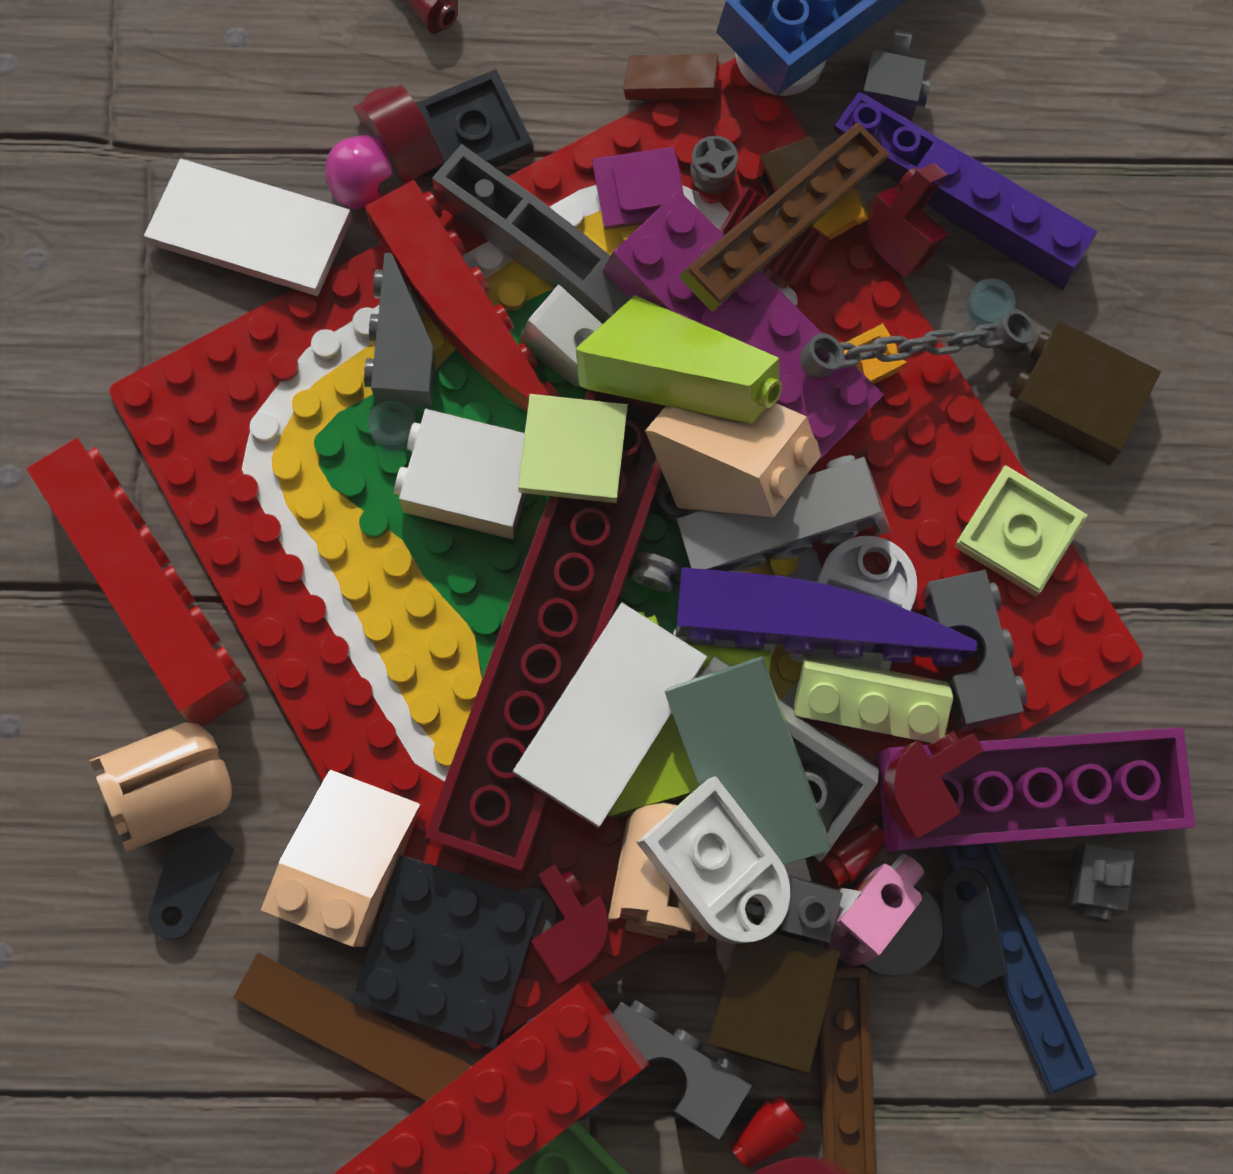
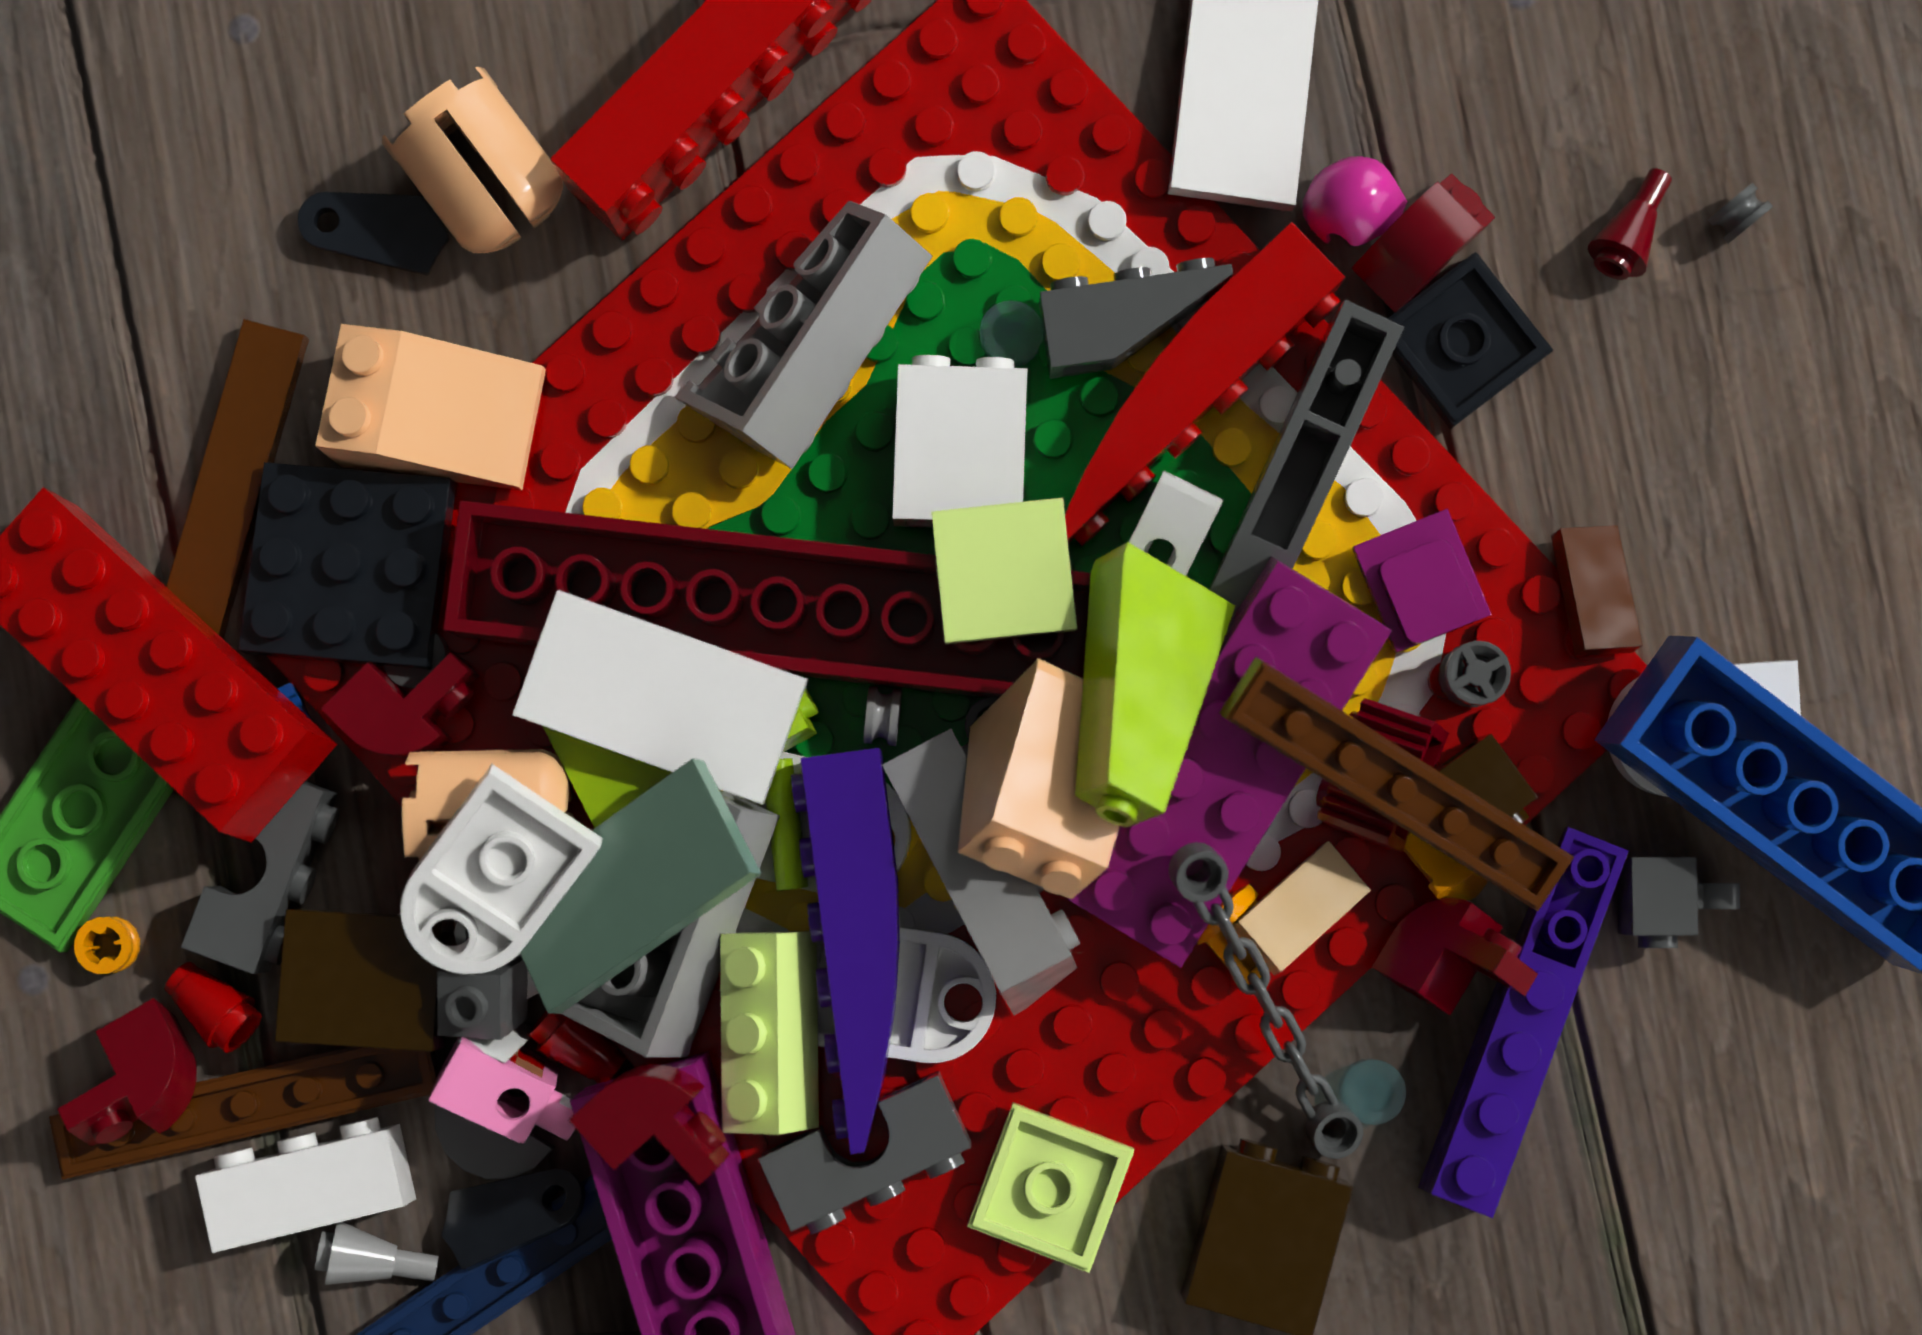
camera: 85 degrees right, 10 degrees up
(360, 563) = (810, 335): none -> light grey wedge
(853, 308) = (1302, 907): none -> tan tile
(920, 1084) = (305, 1184): none -> white brick
(982, 1056) = (359, 1256): none -> light grey cone

